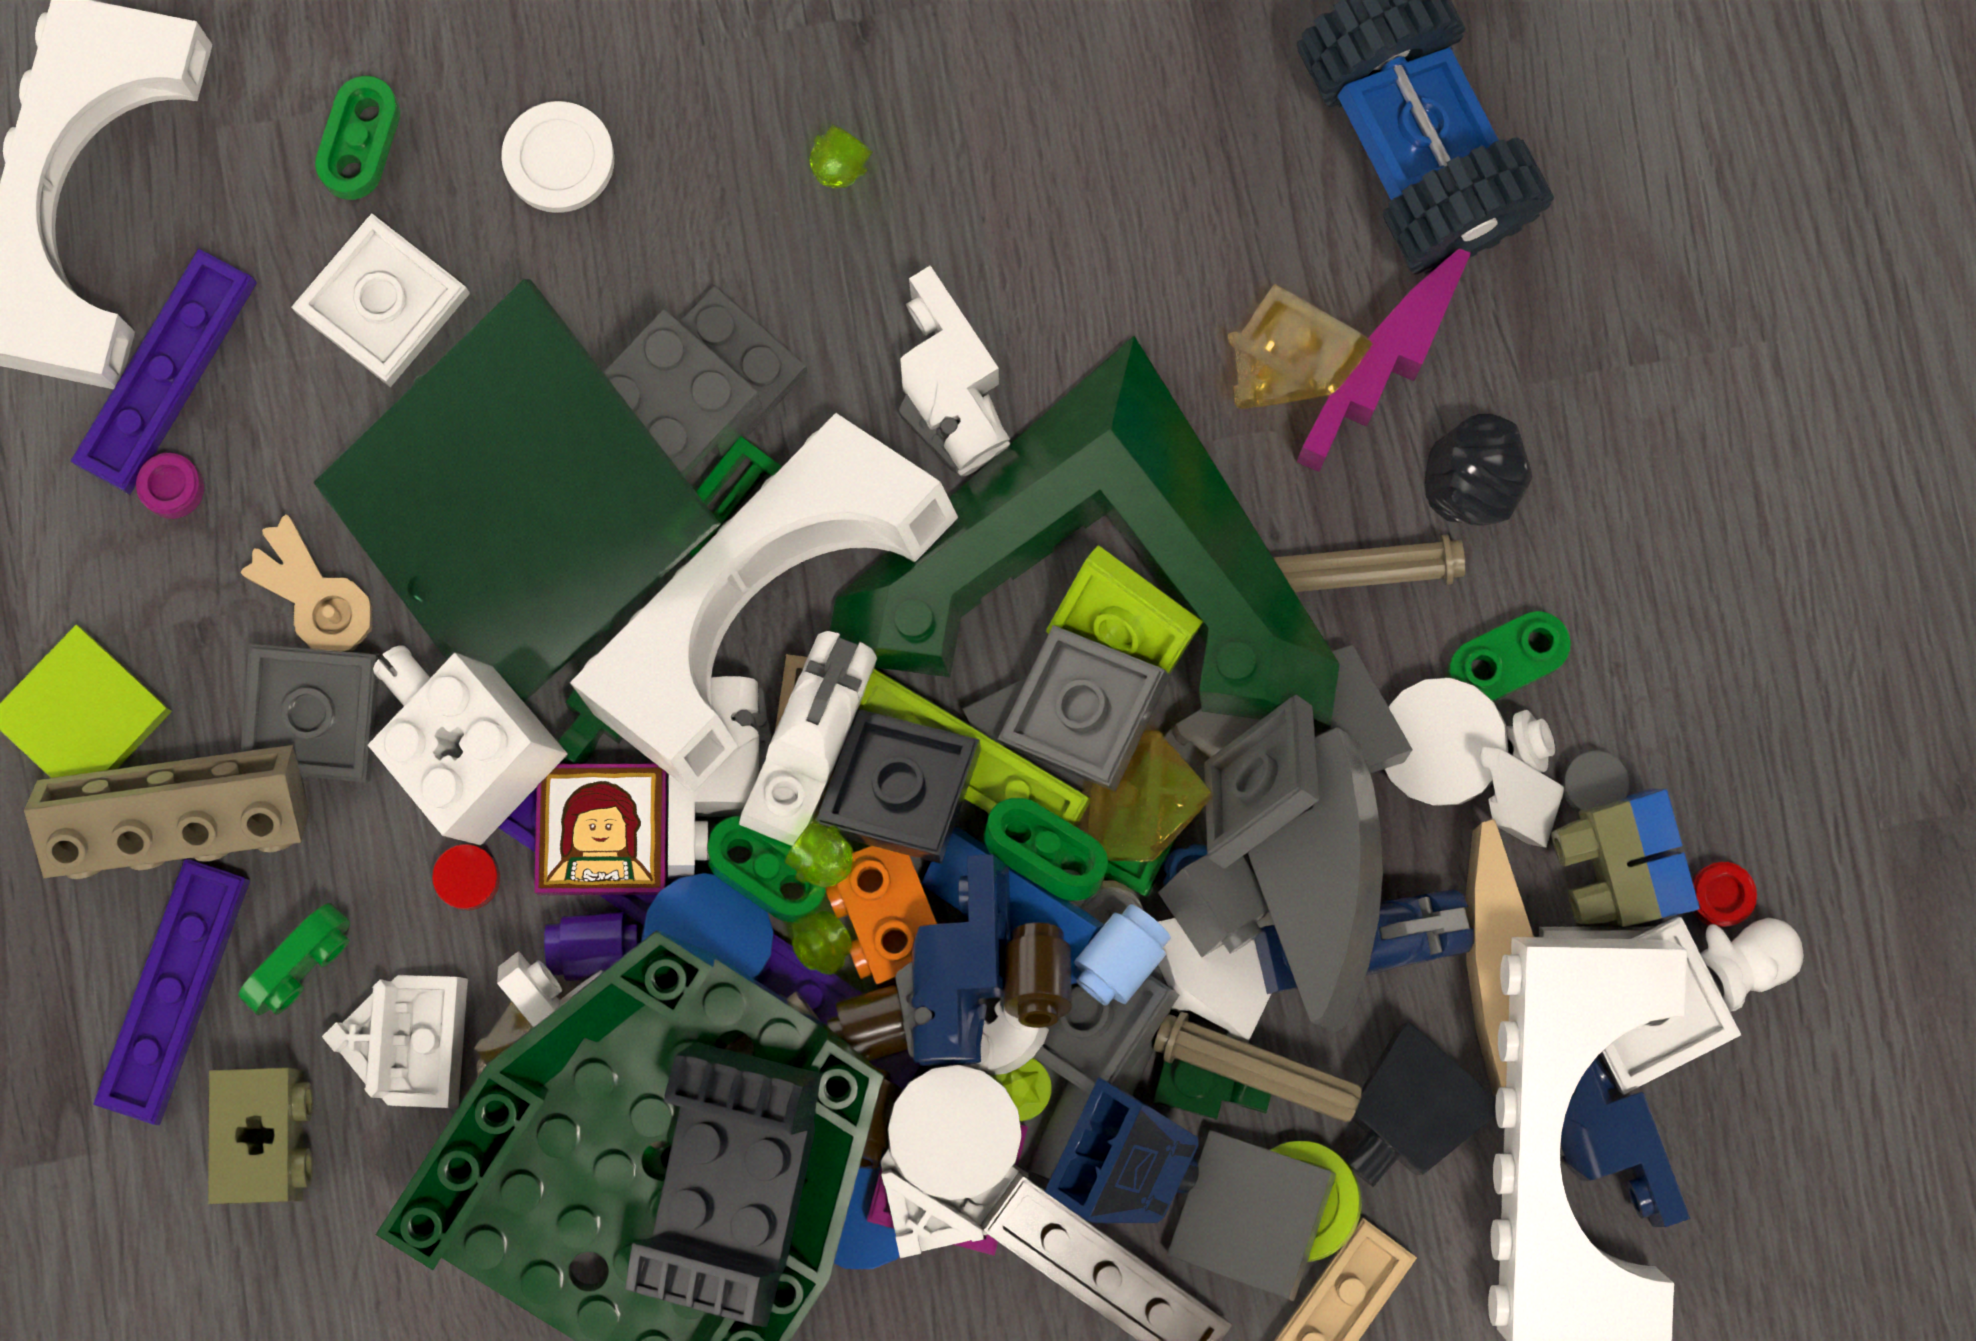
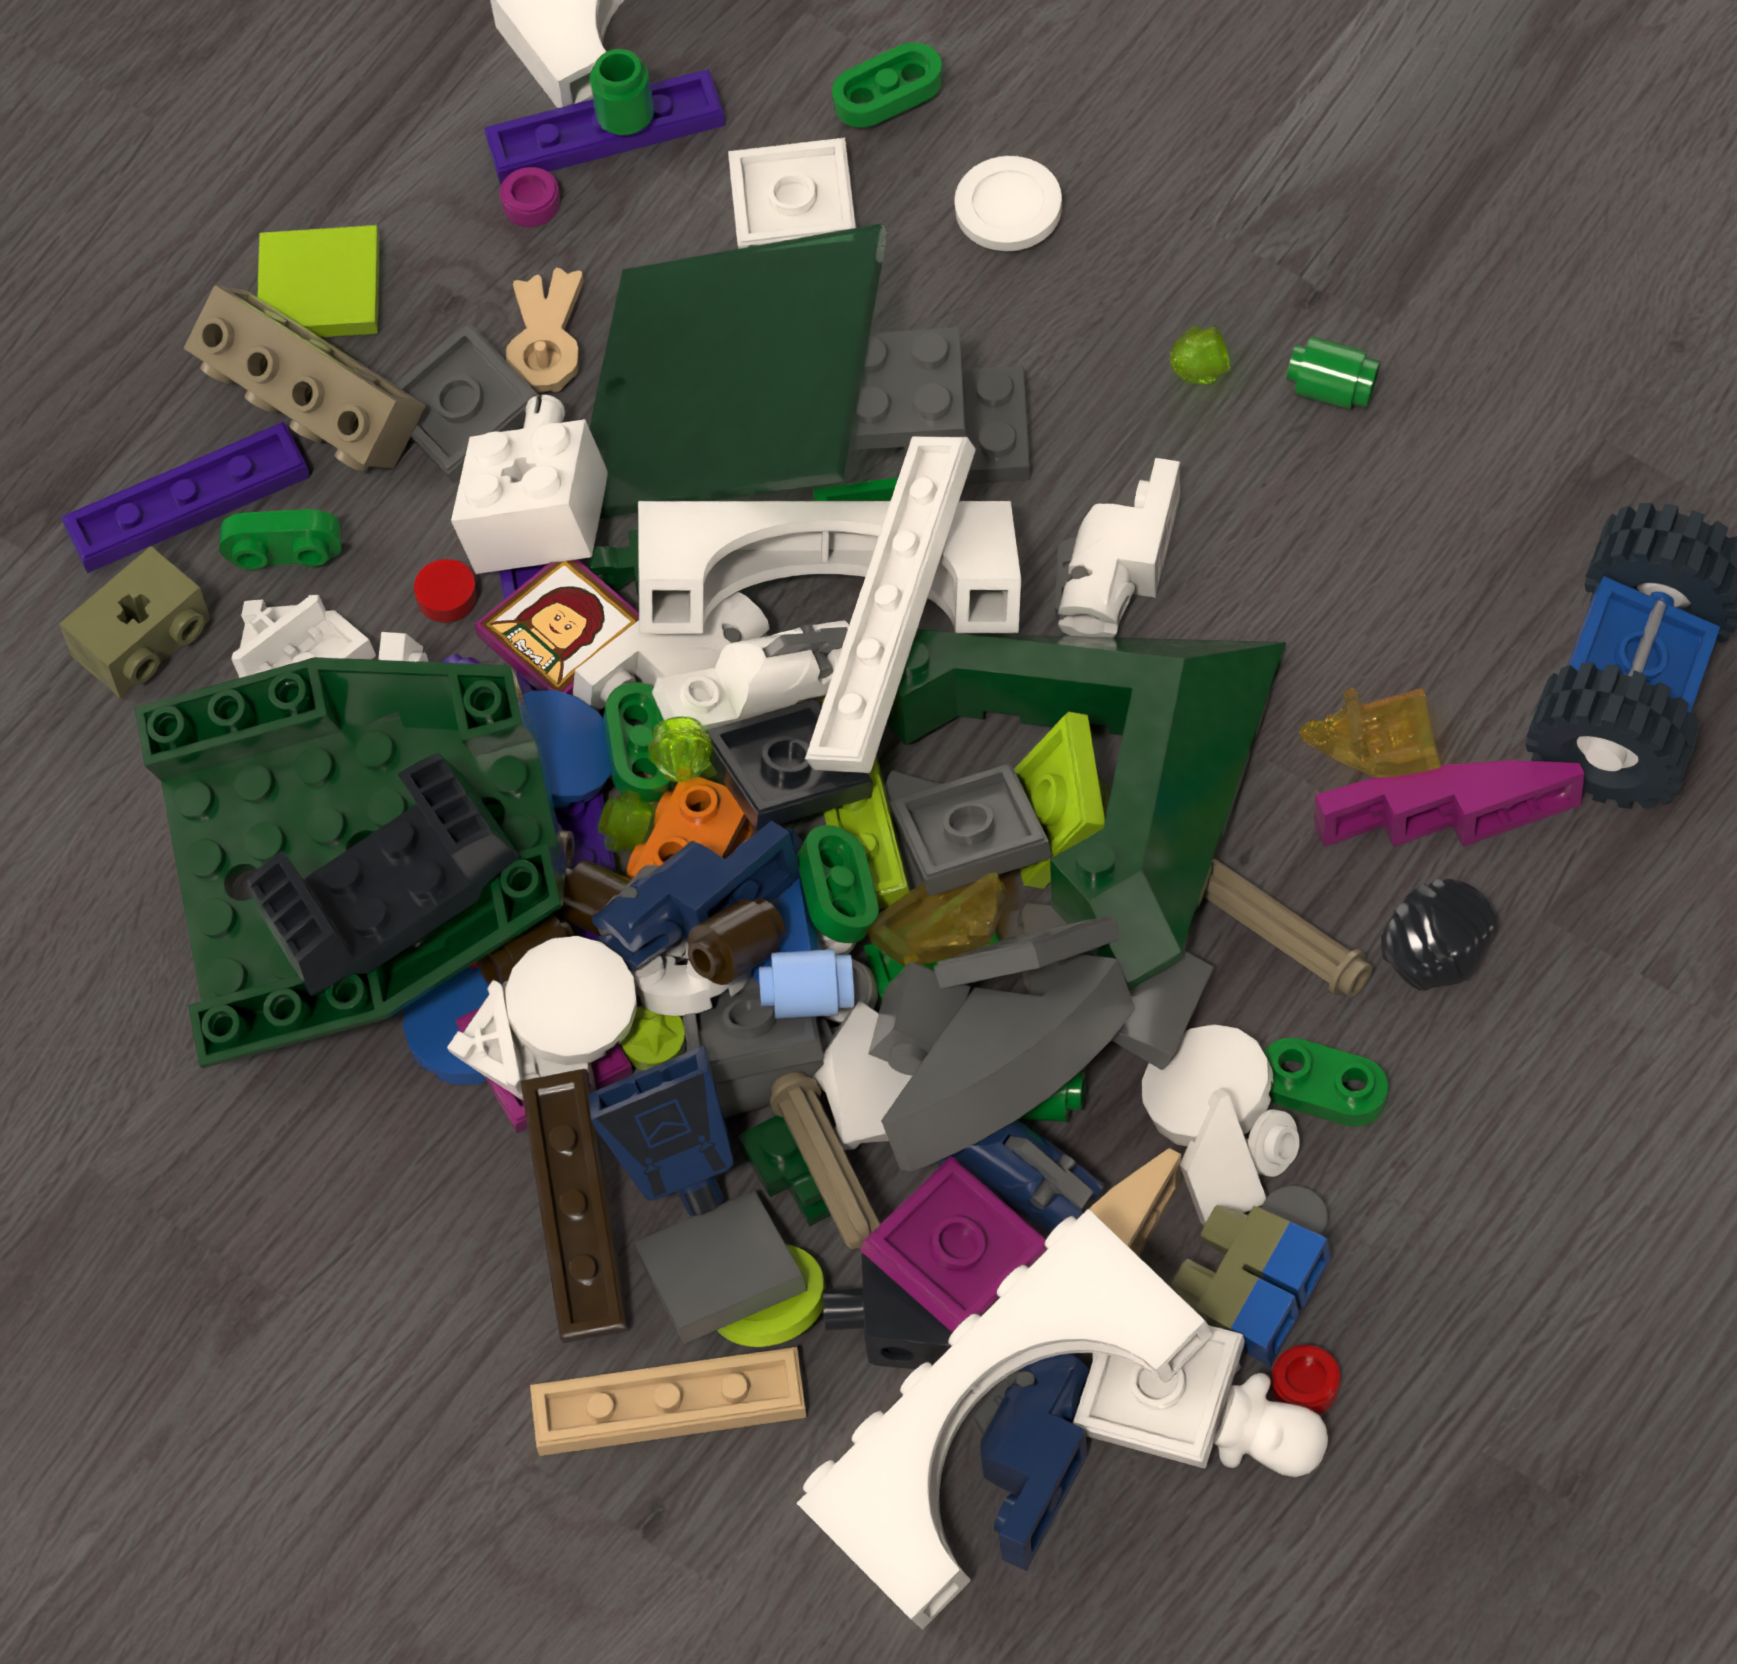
camera: 50 degrees right, 20 degrees down
(168, 340) = (621, 92): none -> green brick
(859, 589) = (890, 605): none -> white tile
(953, 83) = (1333, 373): none -> green brick
(1424, 1048) = (953, 1244): none -> magenta tile

